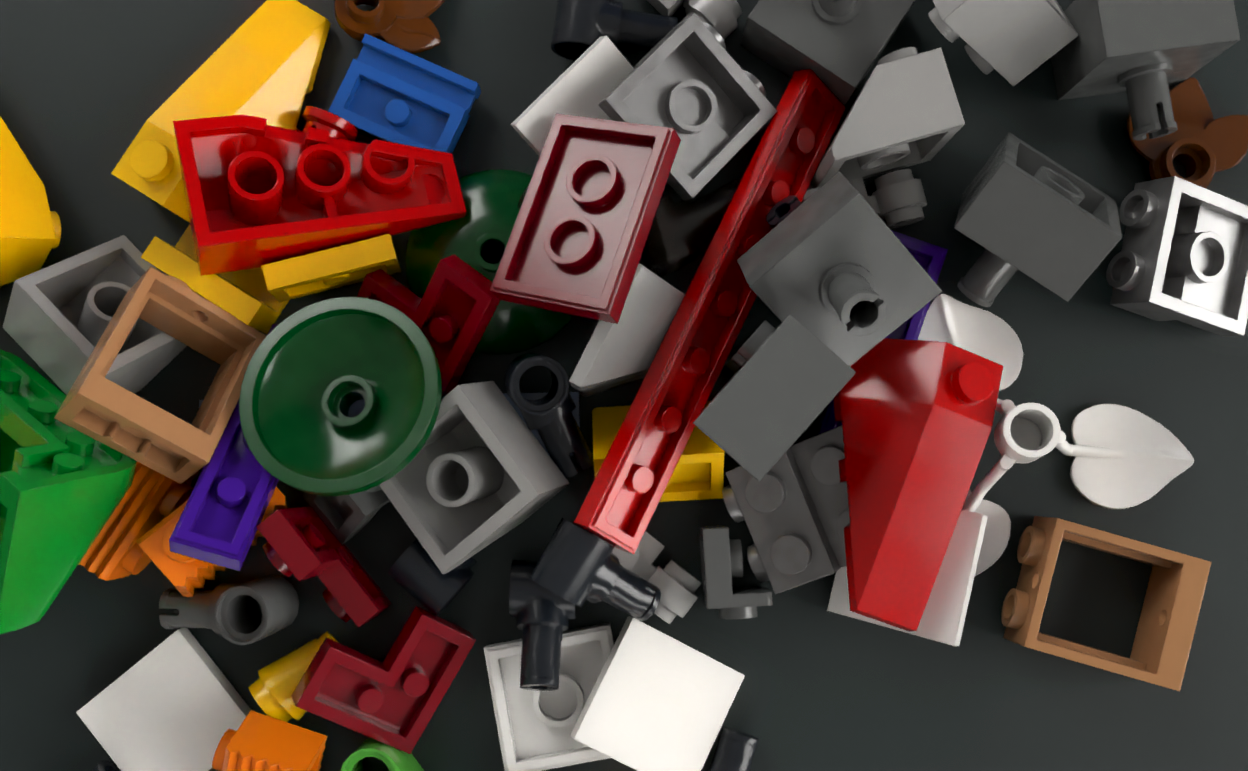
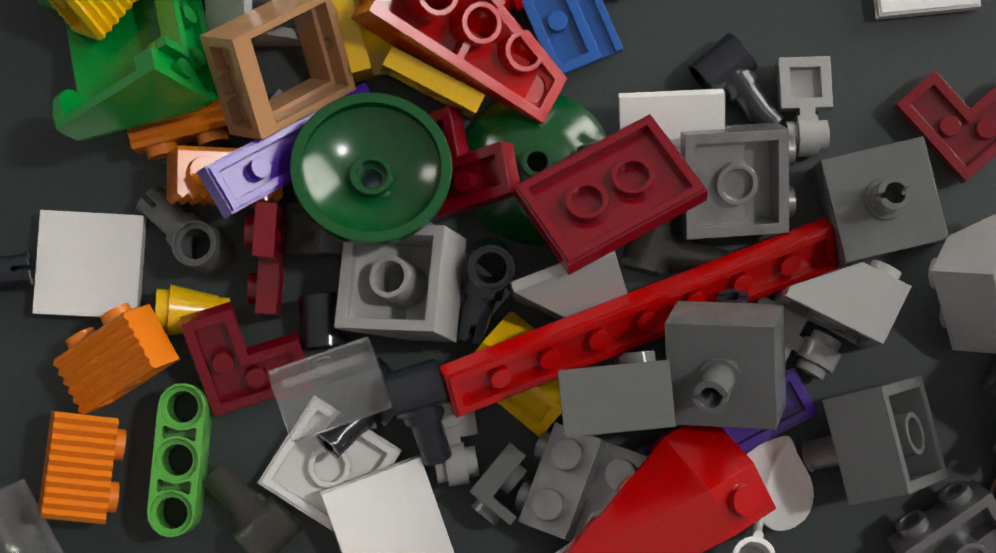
camera: 40 degrees right, 0 degrees up
(491, 636) = (329, 389): none -> clear panel

